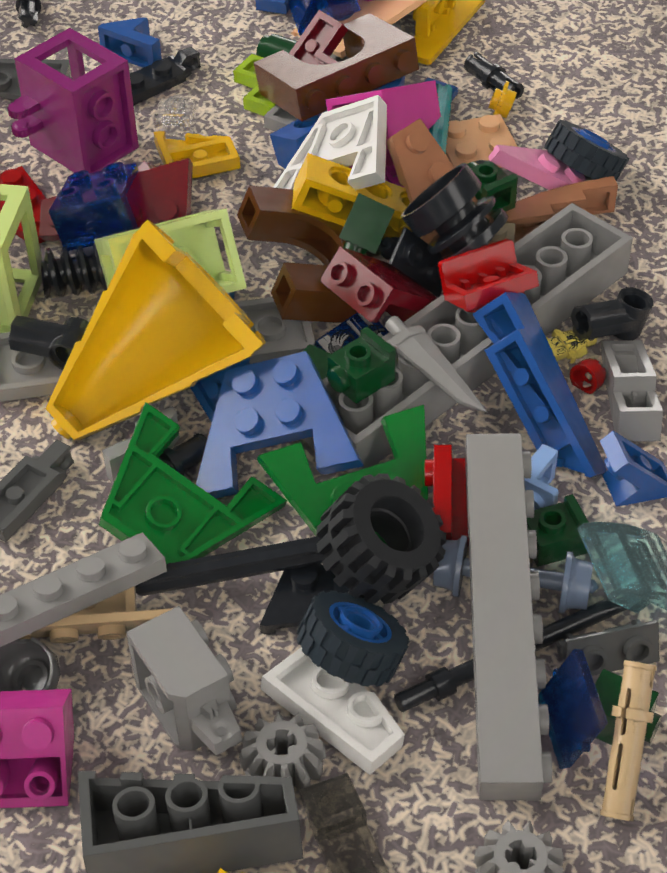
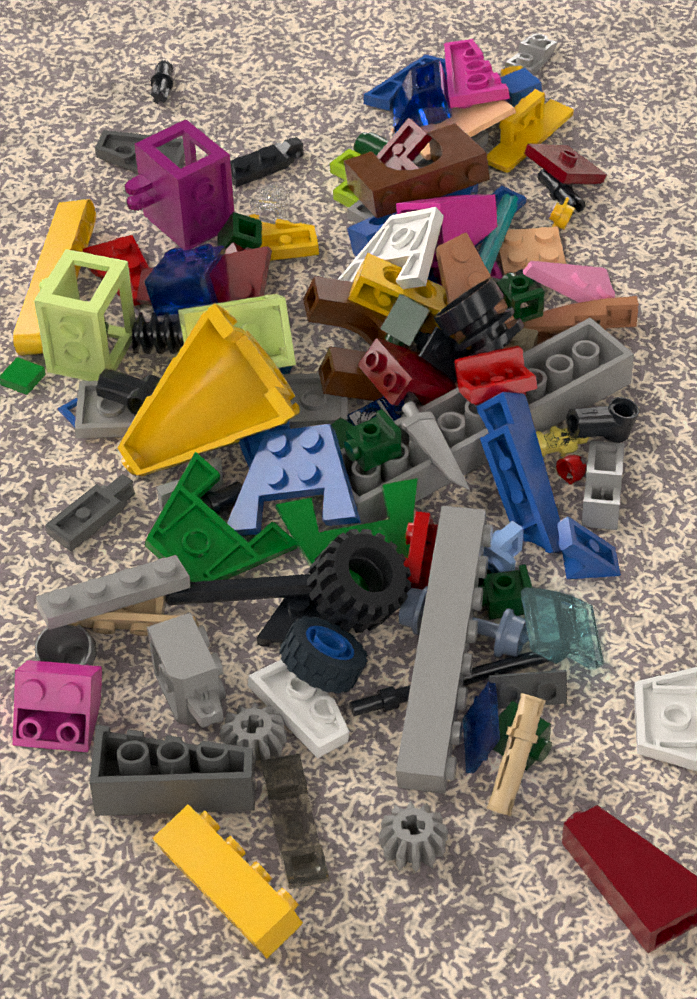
camera: 10 degrees right, 0 degrees up
(131, 41) = (244, 126): blue slope -> none
(150, 146) = (242, 231): none -> dark green brick
(492, 49) = (565, 164): none -> dark red plate
(585, 151) = (619, 271): black wheel -> none

